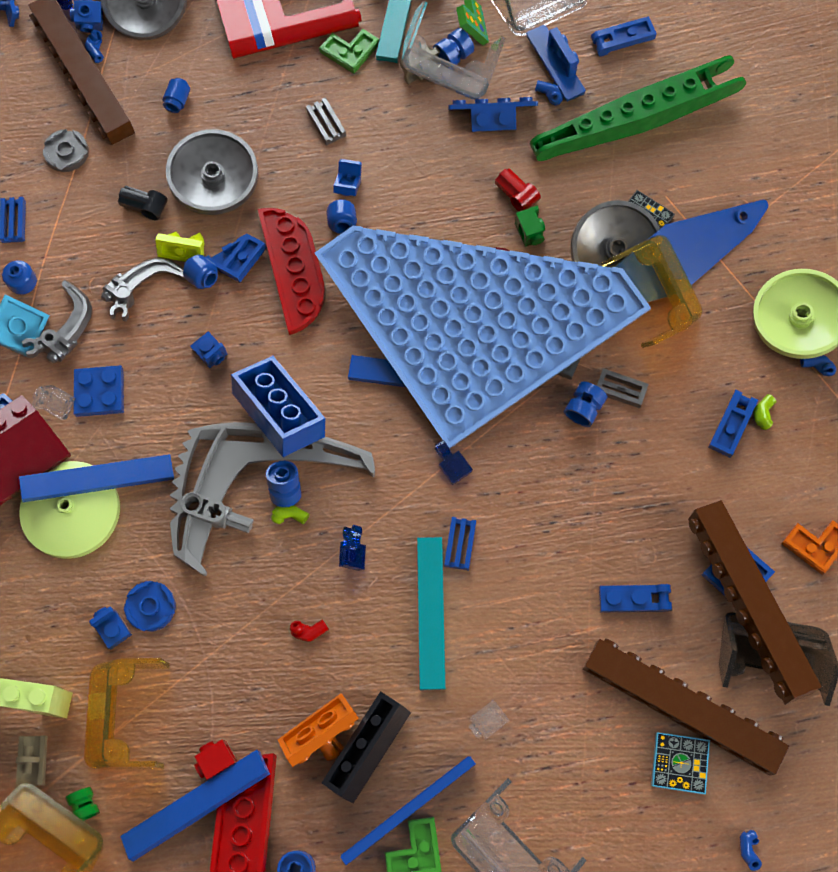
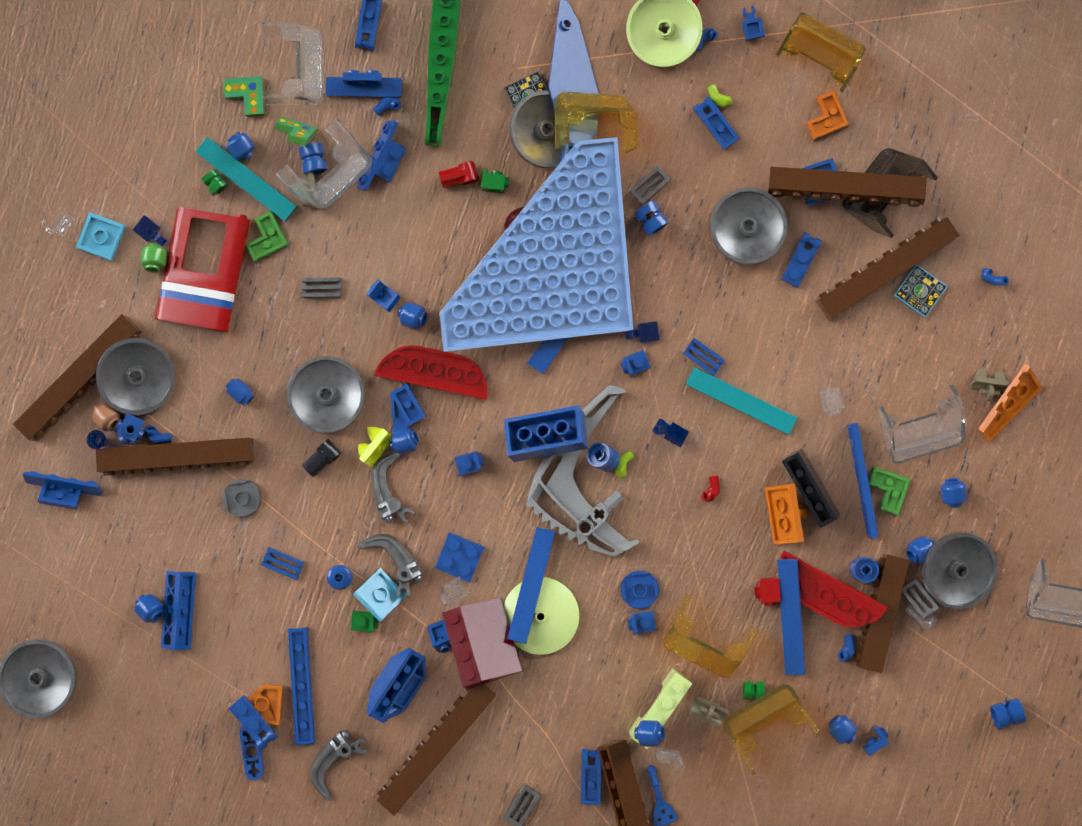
camera: 65 degrees left, 15 degrees up
(411, 470) = (635, 363): none -> blue bracket
(638, 514) = (748, 226): none -> flat silver dish

